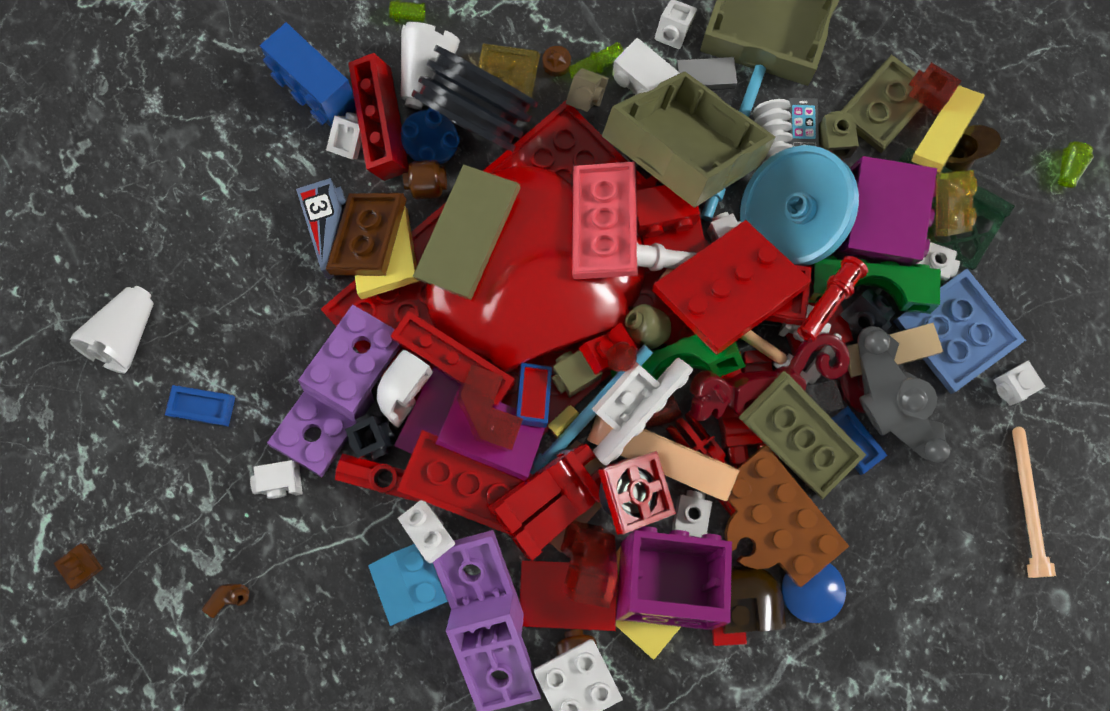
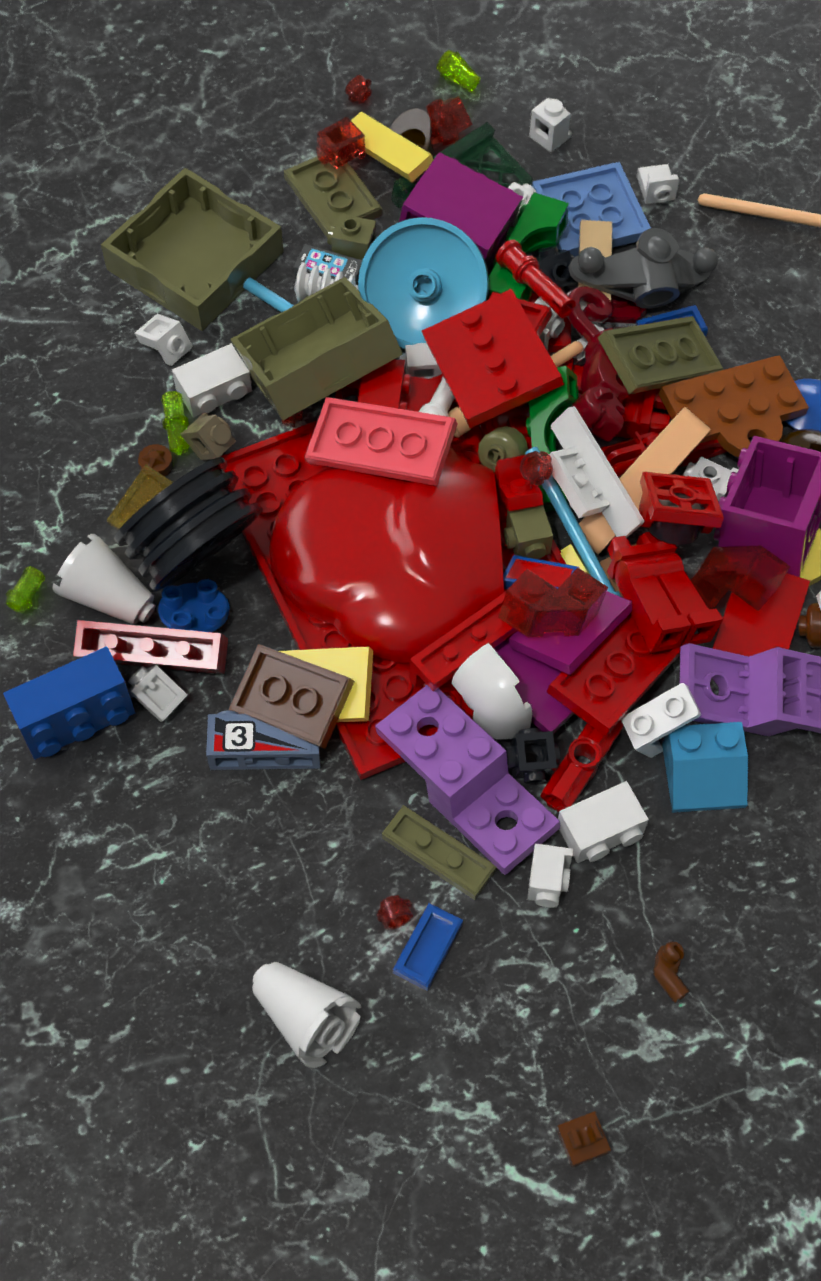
camera: 70 degrees left, 15 degrees down
(217, 371) = (394, 912): none -> clear red plate
(279, 389) = (439, 852): none -> olive tile
(329, 510) = (603, 823): none -> white brick
(425, 179) = (246, 622): reddish brown head -> none
(467, 231) = (342, 575): olive tile -> none
(711, 72) = (233, 321): light grey tile -> none
(955, 202) = (481, 162): clear yellow plate -> none
(1003, 169) = (447, 120): none -> clear red brick
(1013, 85) = (358, 89): none -> clear red plate
(1043, 265) = (553, 116): none -> white brick

